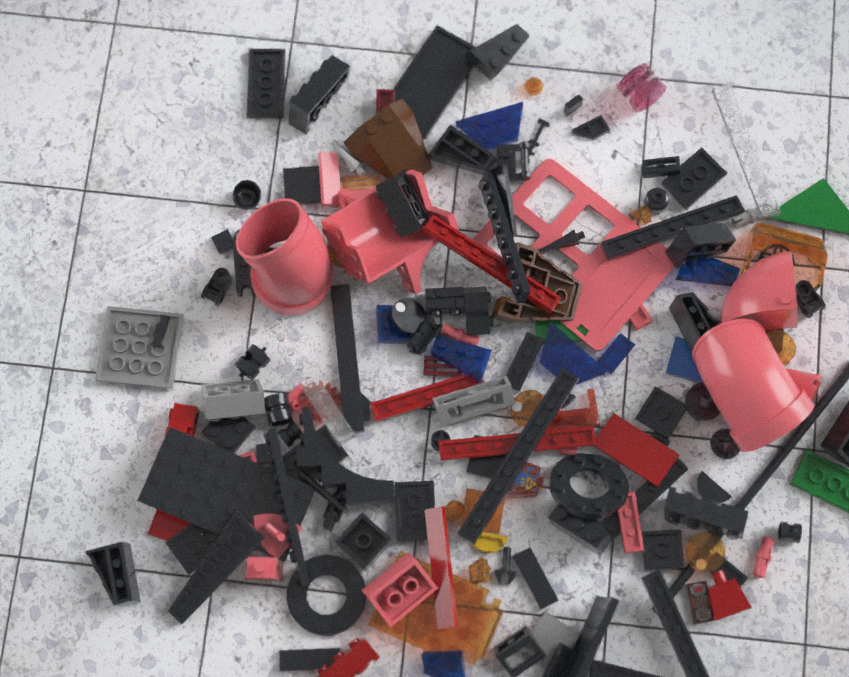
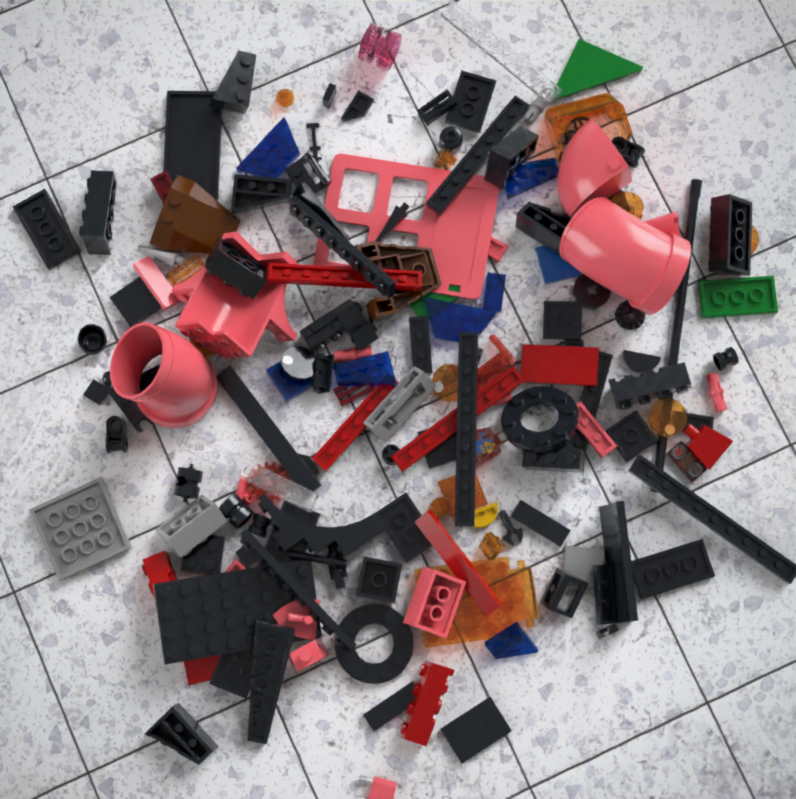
camera: 30 degrees left, 5 degrees up
(160, 330) = (89, 503): black piece -> none

